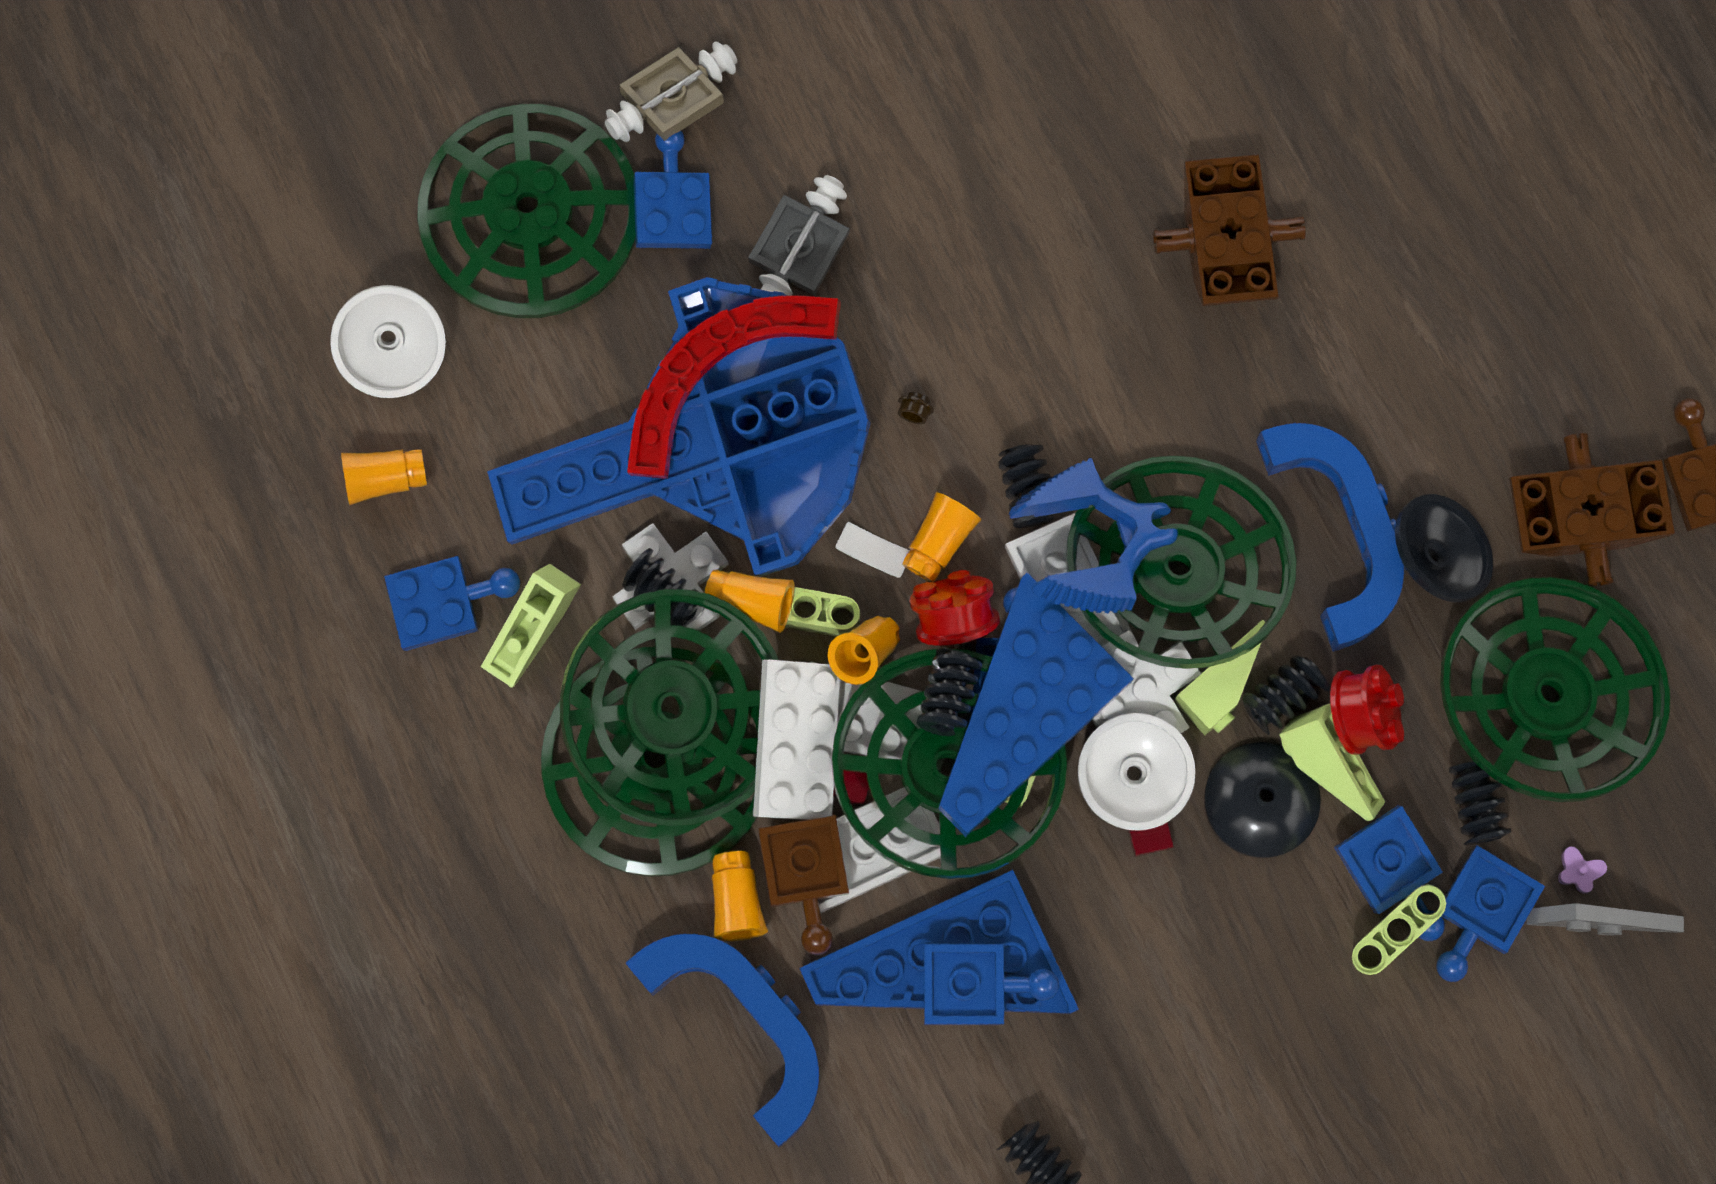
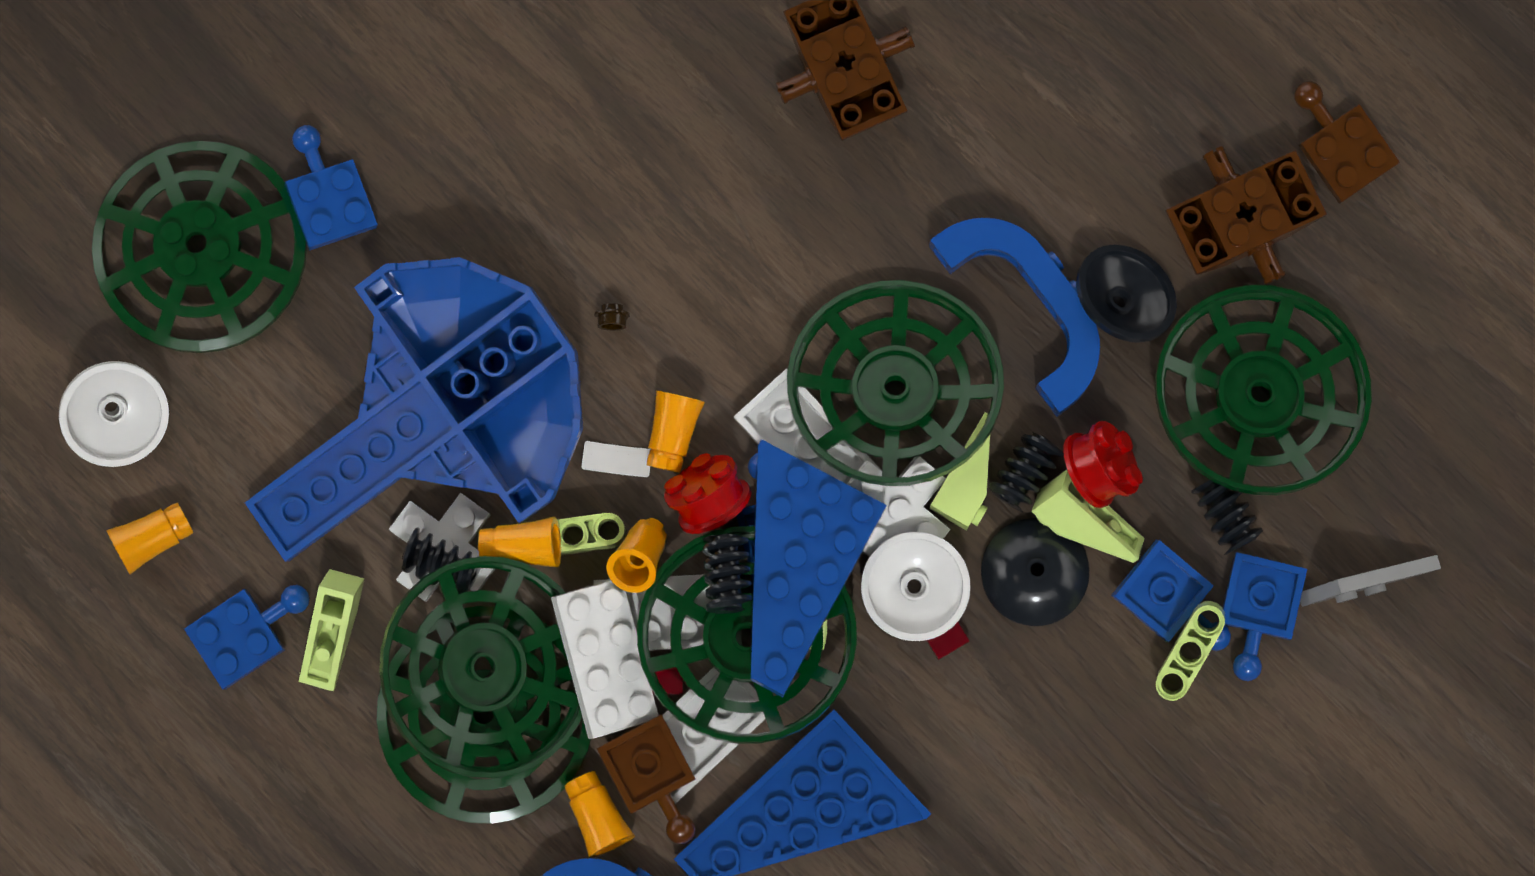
camera: 15 degrees left, 5 degrees up
(671, 93) = (293, 95): dark tan plate -> none
(704, 348) = (403, 334): red plate -> none
(801, 240) = (457, 197): dark grey plate -> none
(968, 984) = (828, 826): blue plate -> none
(1023, 477) = (735, 356): black piece -> none
(1106, 586) = (834, 432): blue piece -> none
(1579, 870) = (1334, 544): lavender piece -> none

